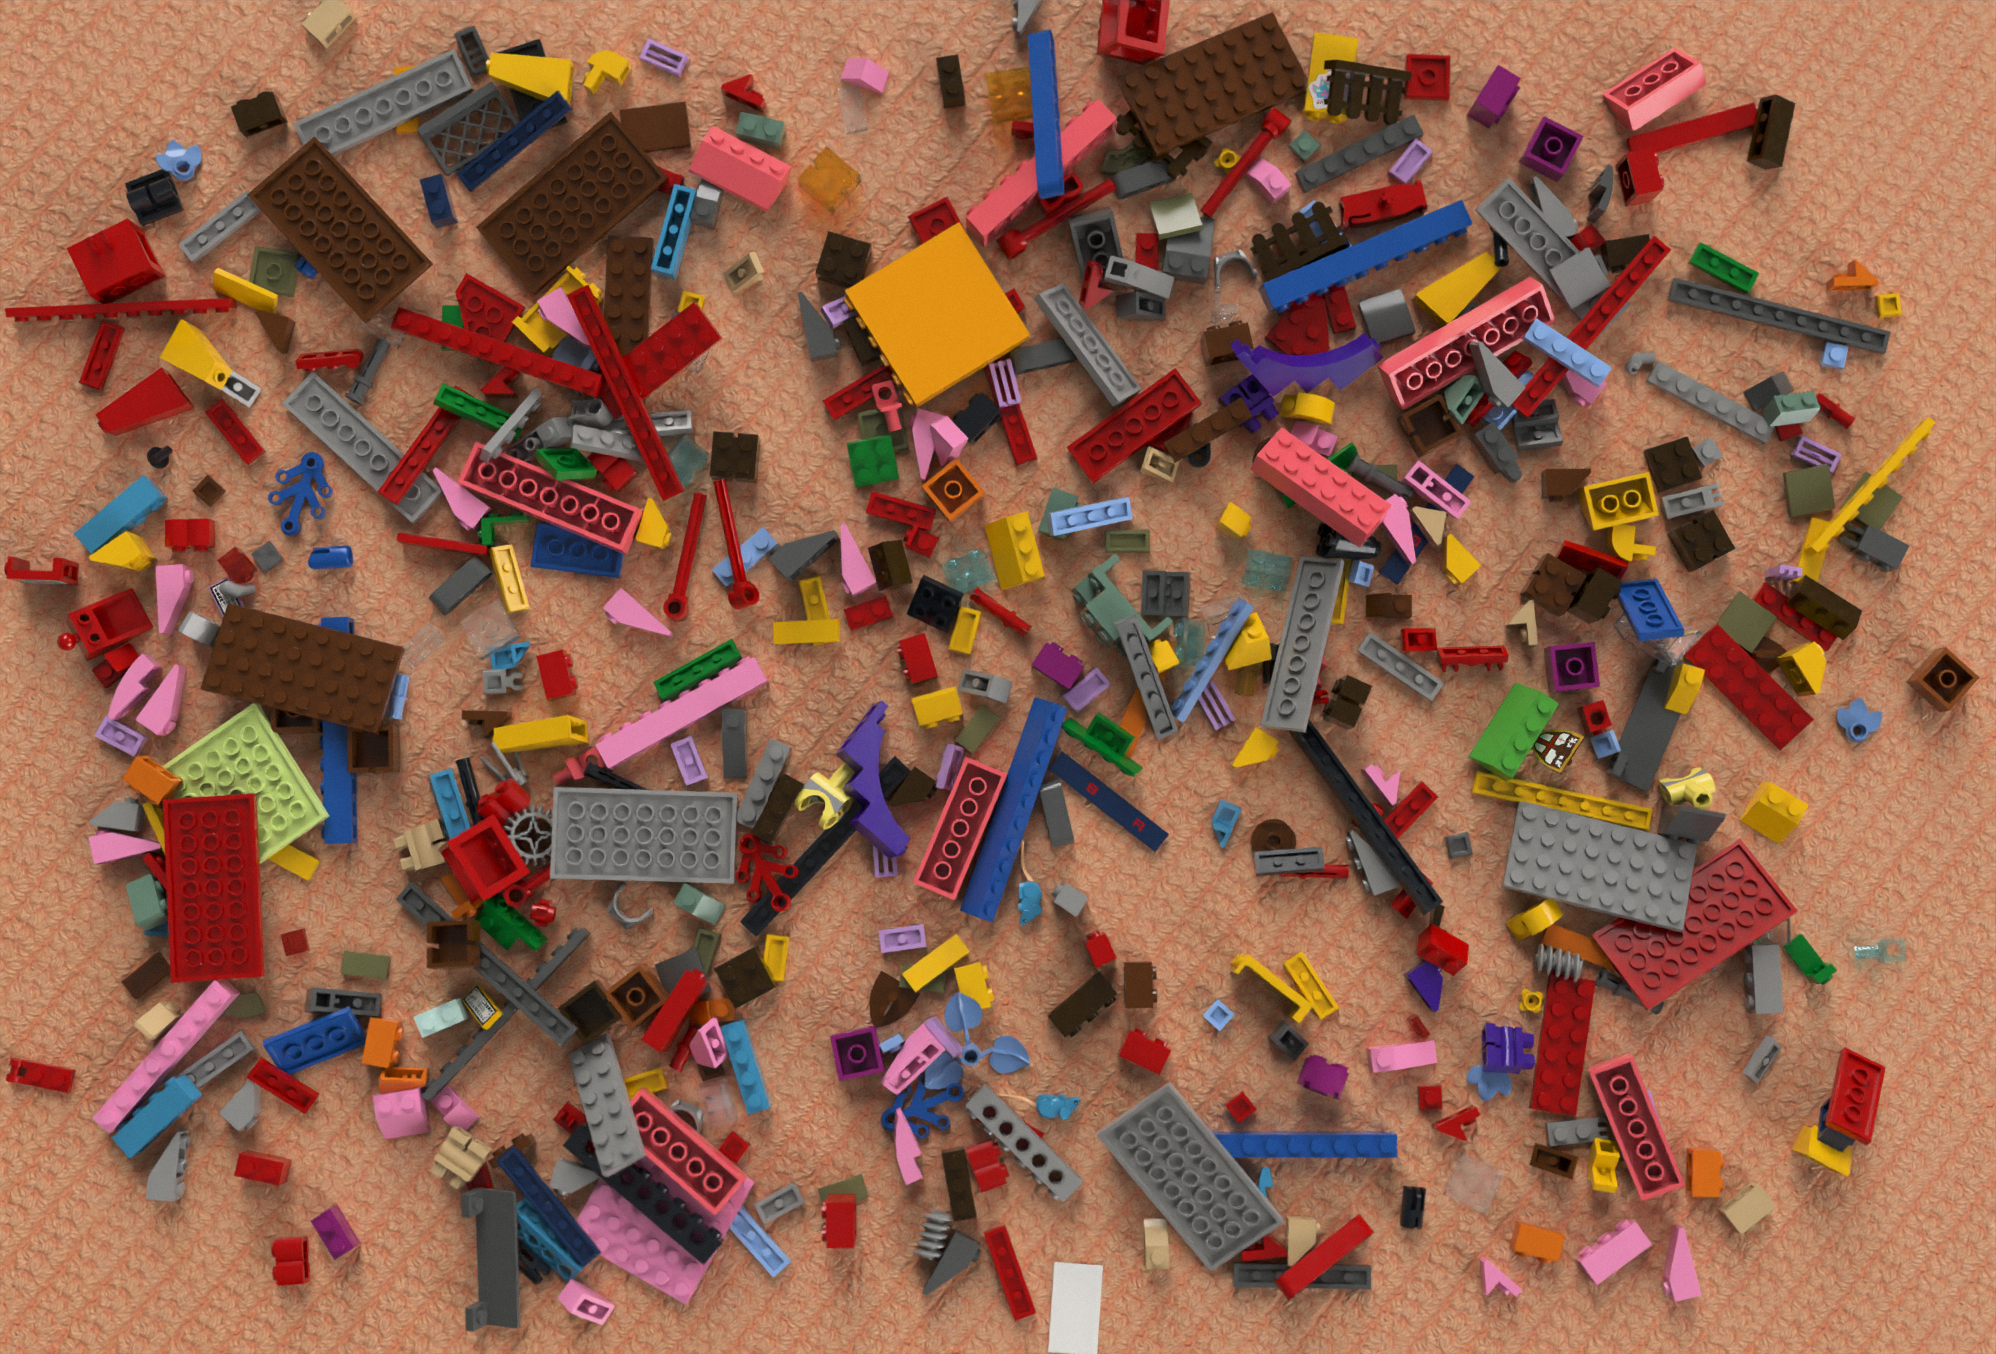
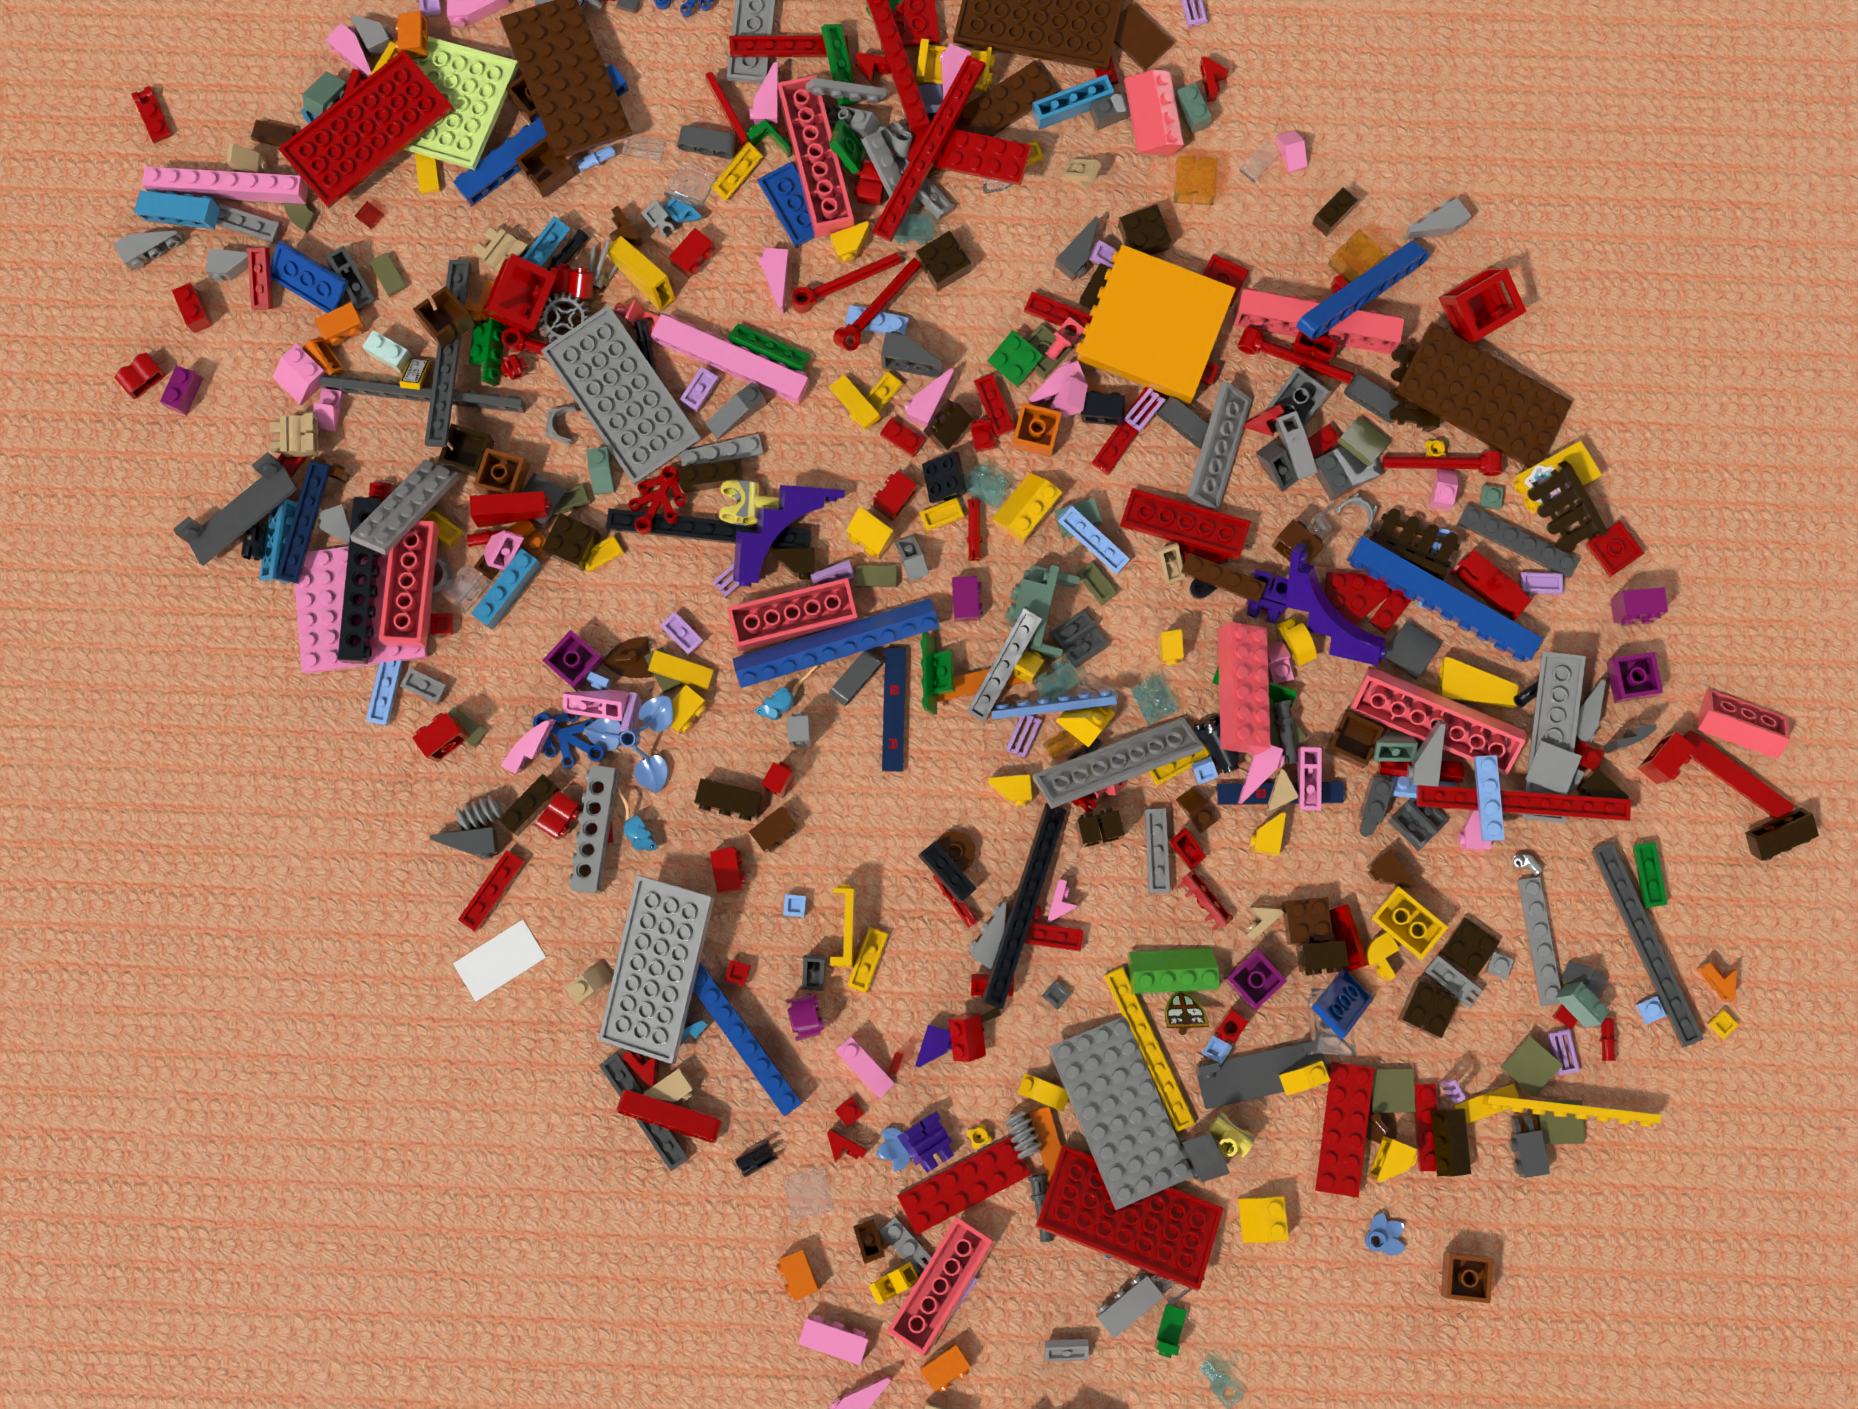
camera: 60 degrees right, 5 degrees down
(331, 557) = (660, 41): blue arm -> none
(585, 1302) = (253, 600): bright pink slope -> none
(1086, 690) = (964, 634): lavender tile -> none
(1124, 159) = (1376, 374): olive tile -> none
(1224, 820) = (943, 805): dark azure slope -> none
(1491, 1276) = (749, 1258): bright pink slope -> none

